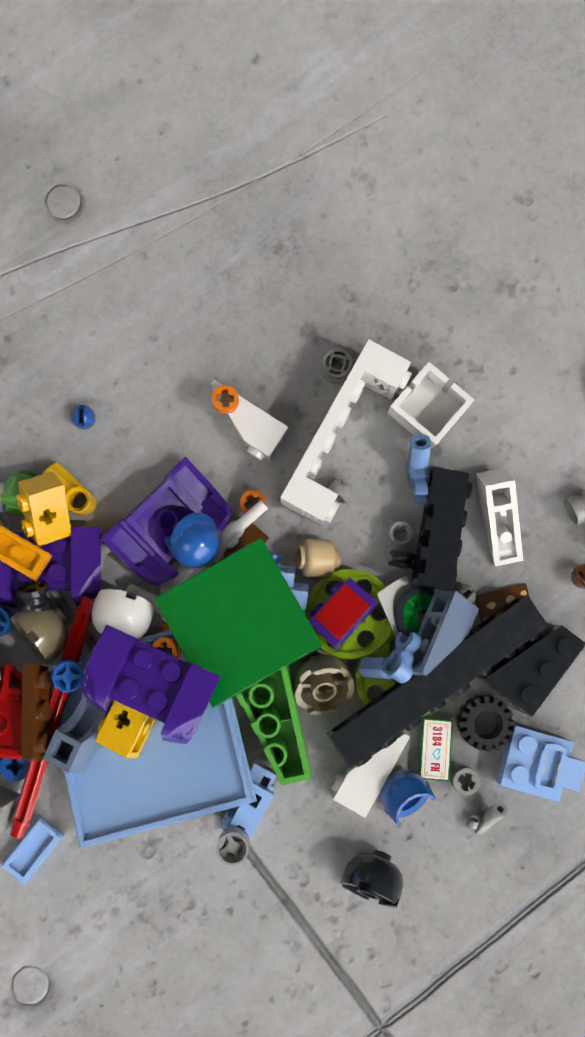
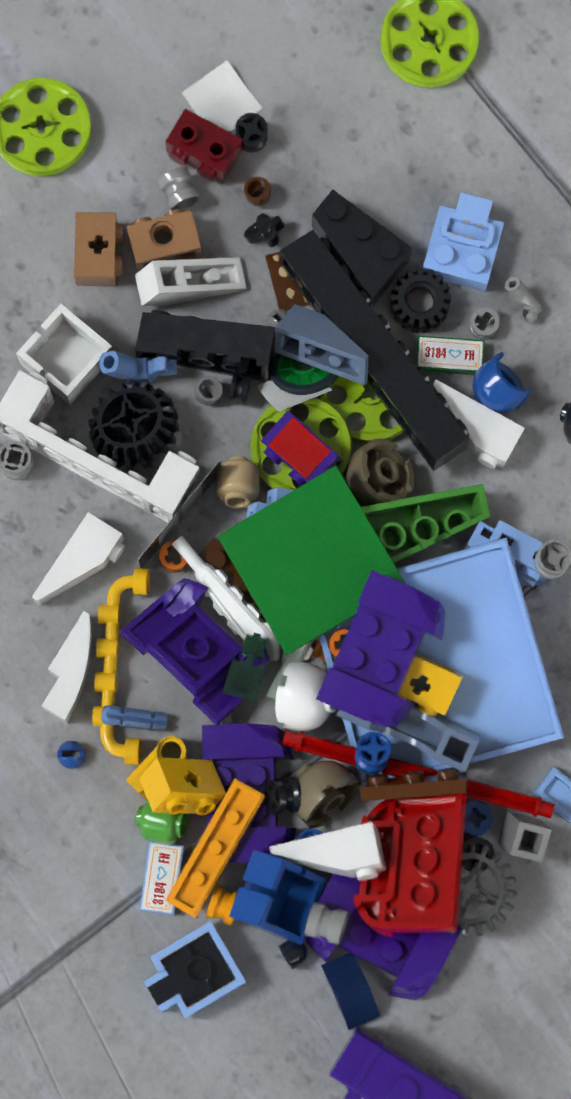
camera: 90 degrees left, 5 degrees down
(109, 468) = (134, 718): none -> medium blue axle
(139, 563) = (244, 676): none -> clear green plate
(145, 447) = (108, 649): none -> yellow bar
(152, 414) = (71, 669): none -> white slope
(194, 540) = (221, 612): blue helmet -> none
(232, 394) = (64, 589): orange bush -> none
(285, 506) = (178, 517): none -> sticker
(358, 477) = (151, 427): none -> black gear
(396, 666) = (359, 389): medium blue bar -> none
(531, 509) = (176, 223): none -> medium nougat brick
(542, 426) = (95, 230): none -> medium nougat brick
(548, 583) = (265, 229): none -> black piece

